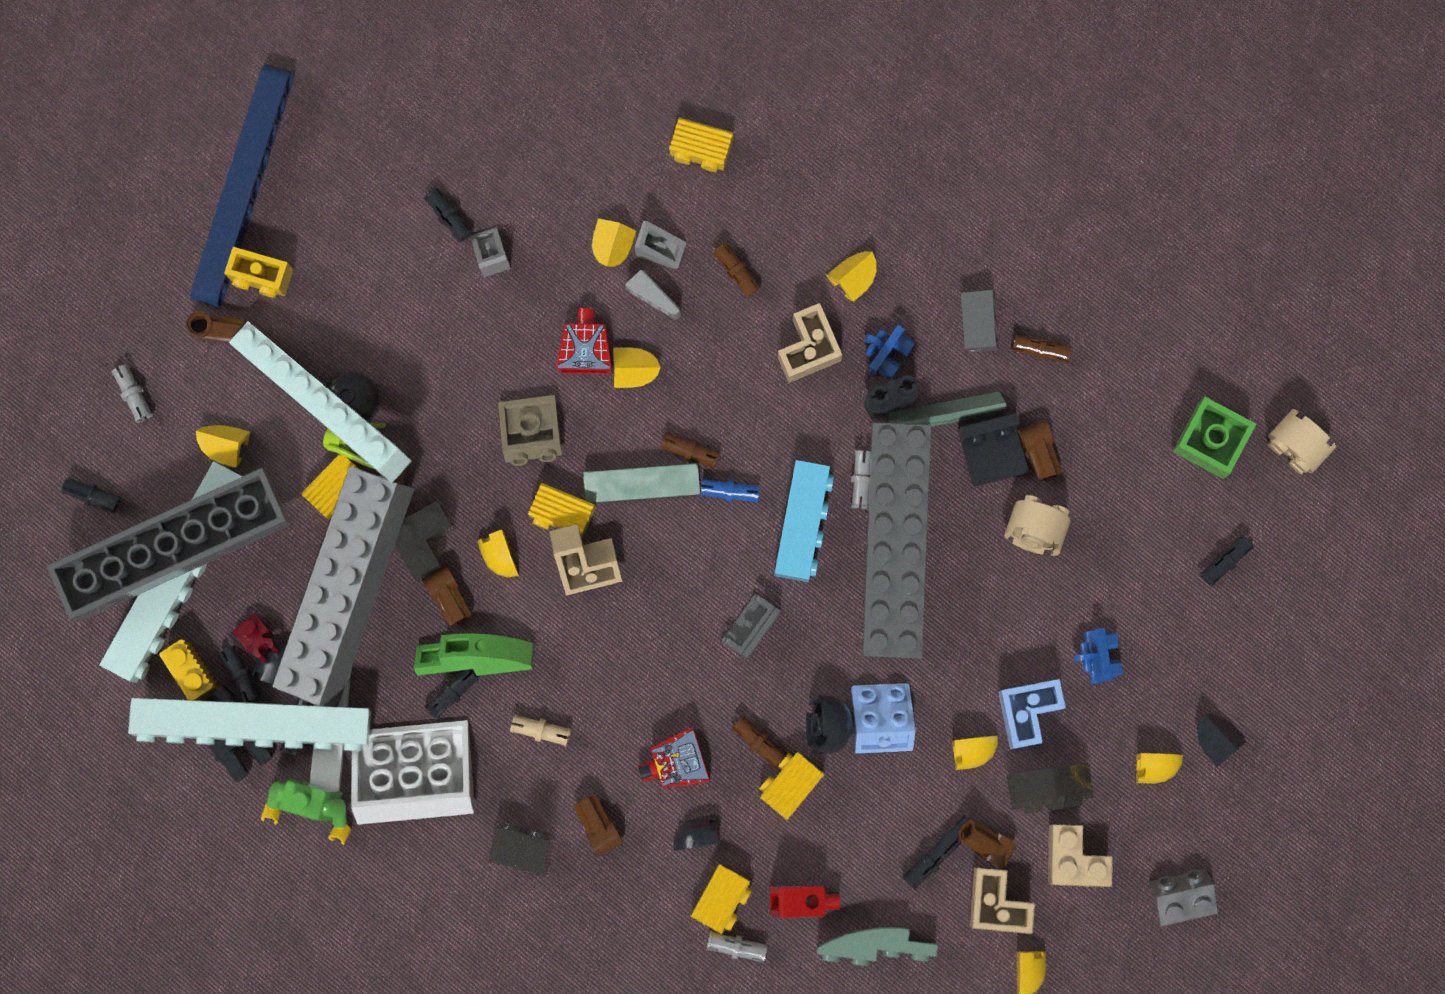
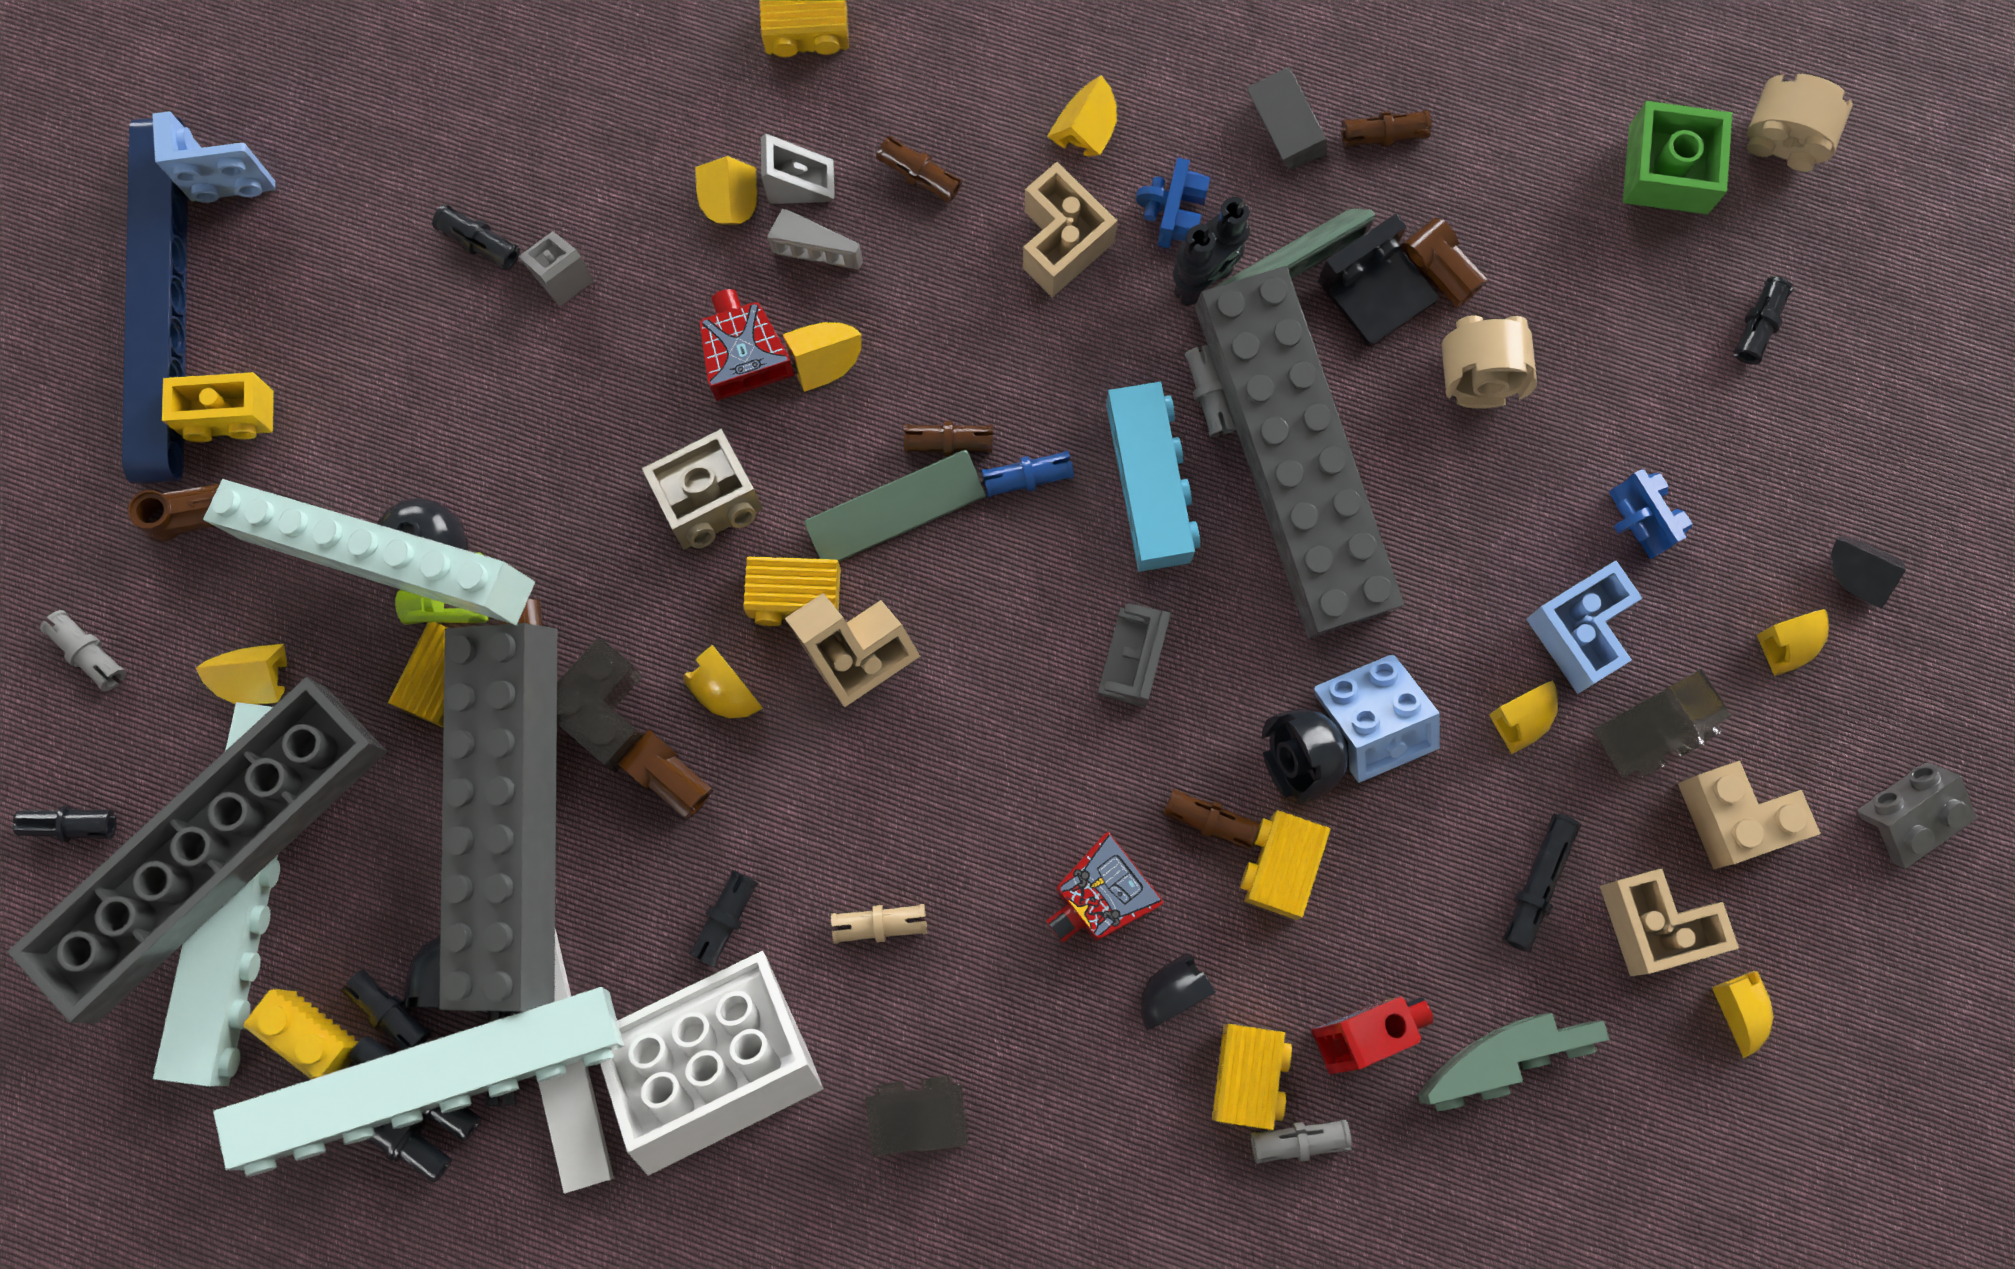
camera: 25 degrees left, 5 degrees down
(255, 636) = (390, 944): dark red plate -> none
(288, 110) = (206, 171): none -> light blue bracket
(308, 801) = (559, 1169): bright green torso -> none
(480, 652) = (741, 839): bright green slope -> none
(600, 830) = (1027, 1041): reddish brown piece -> none
(992, 846) = (1616, 842): reddish brown piece -> none

